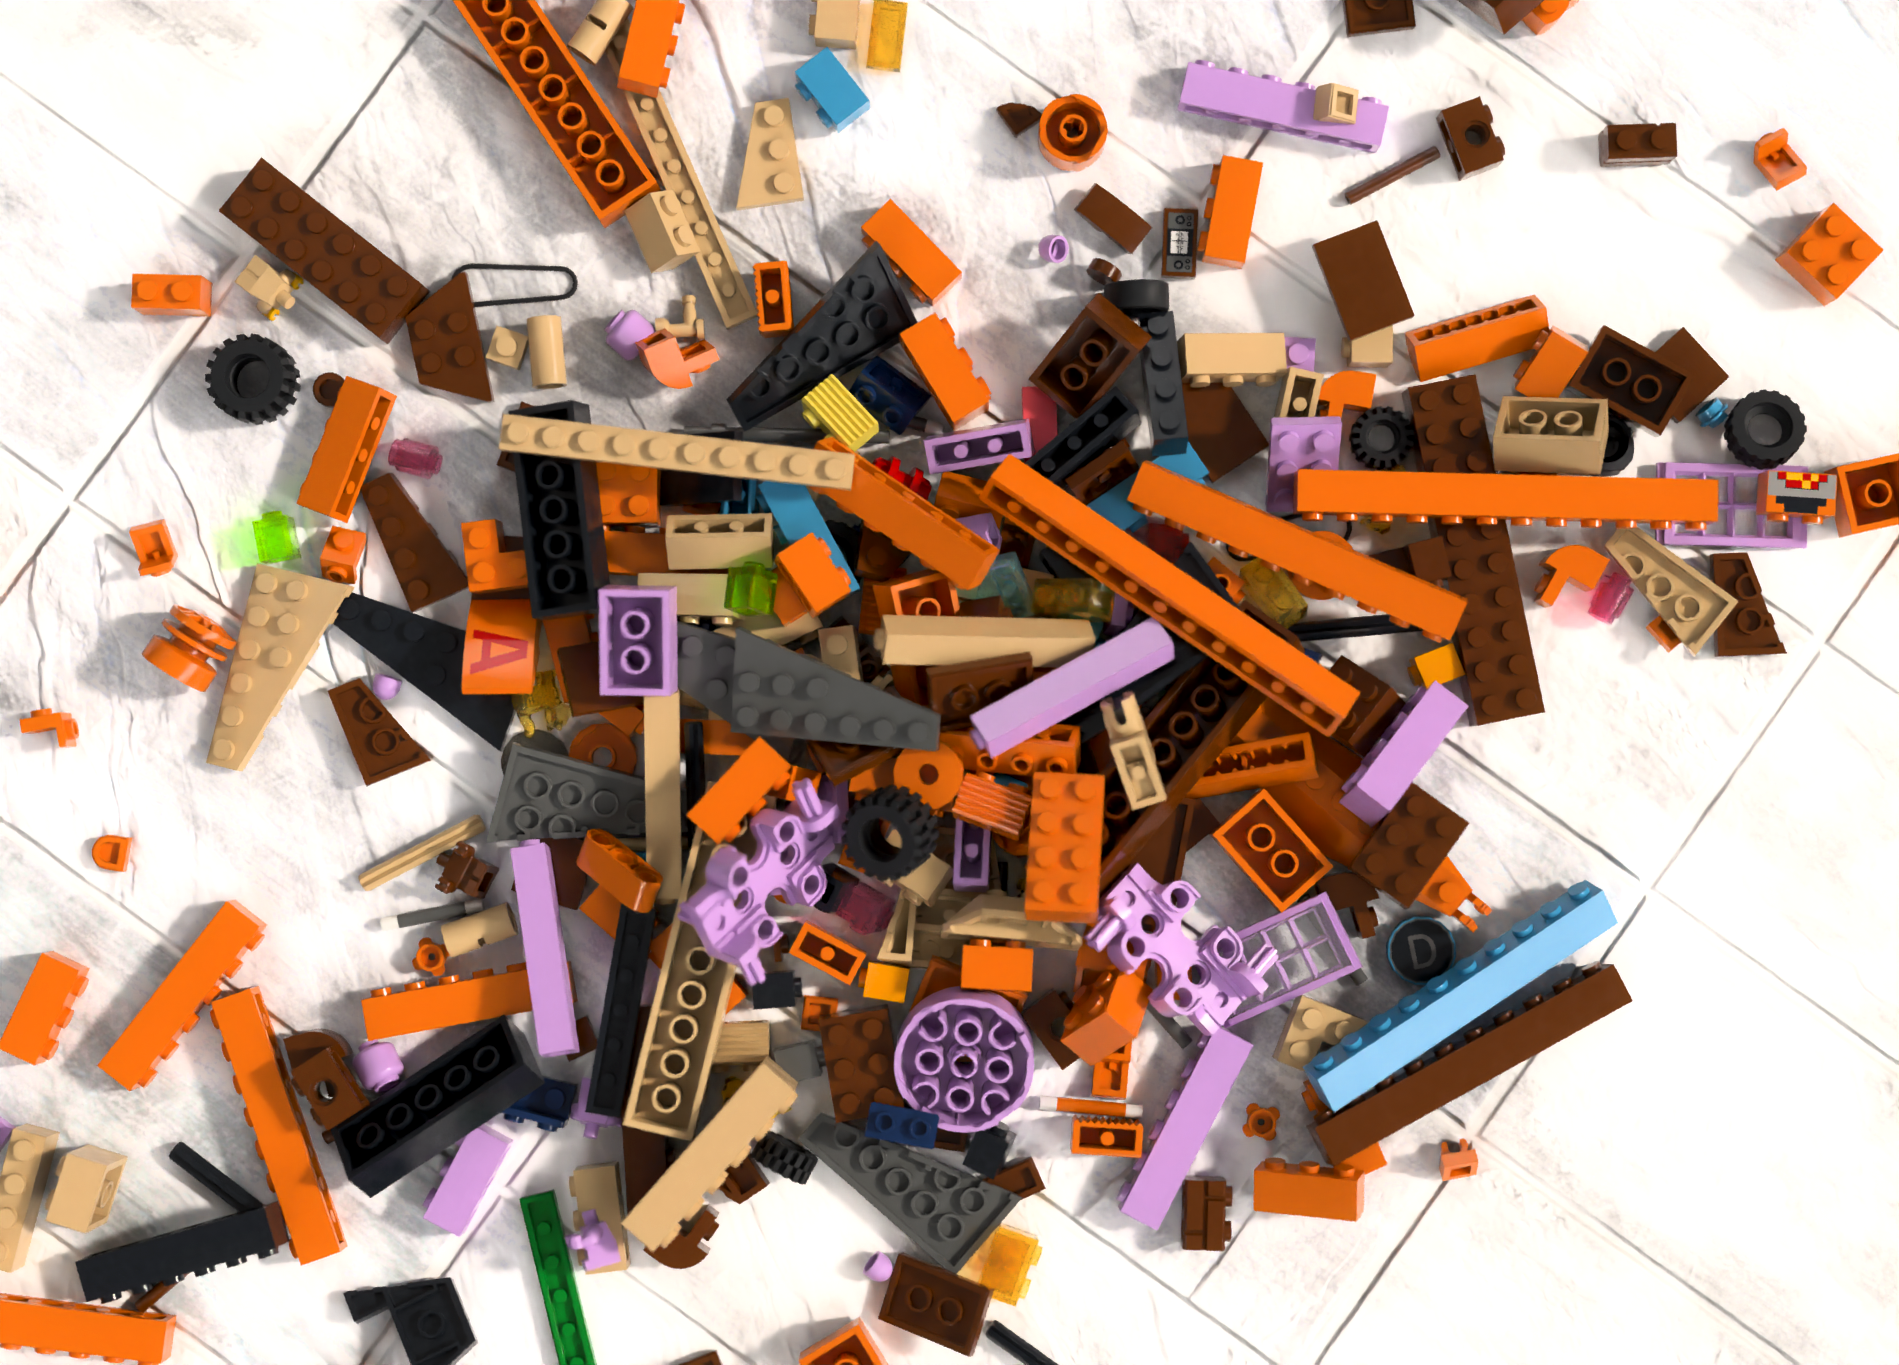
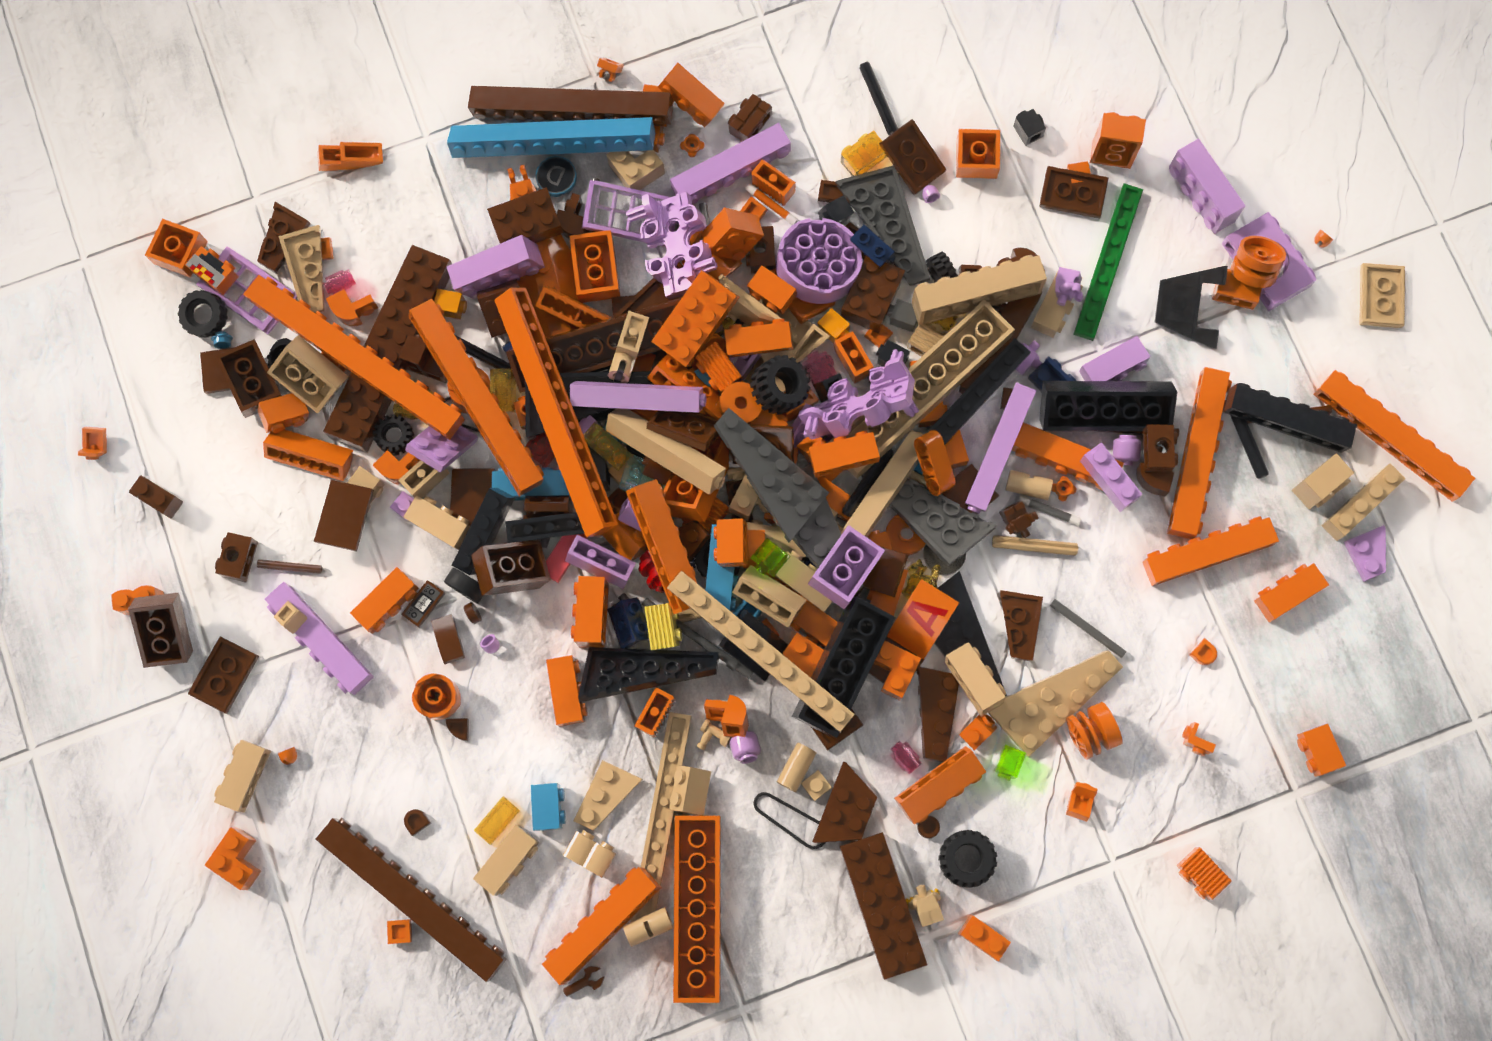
camera: 140 degrees left, 10 degrees down
(284, 785) = (1088, 628): none -> dark grey bar
(369, 1003) = (1110, 477): none -> lavender brick
(382, 613) = (975, 679): none -> tan brick
(385, 686) = (999, 644): lavender hinge -> none
(738, 71) = (589, 853): none -> tan brick
(962, 879) = (758, 338): none -> orange brick
(1731, 788) = (349, 156): none -> orange slope
(1829, 254) = (105, 378): orange brick -> none

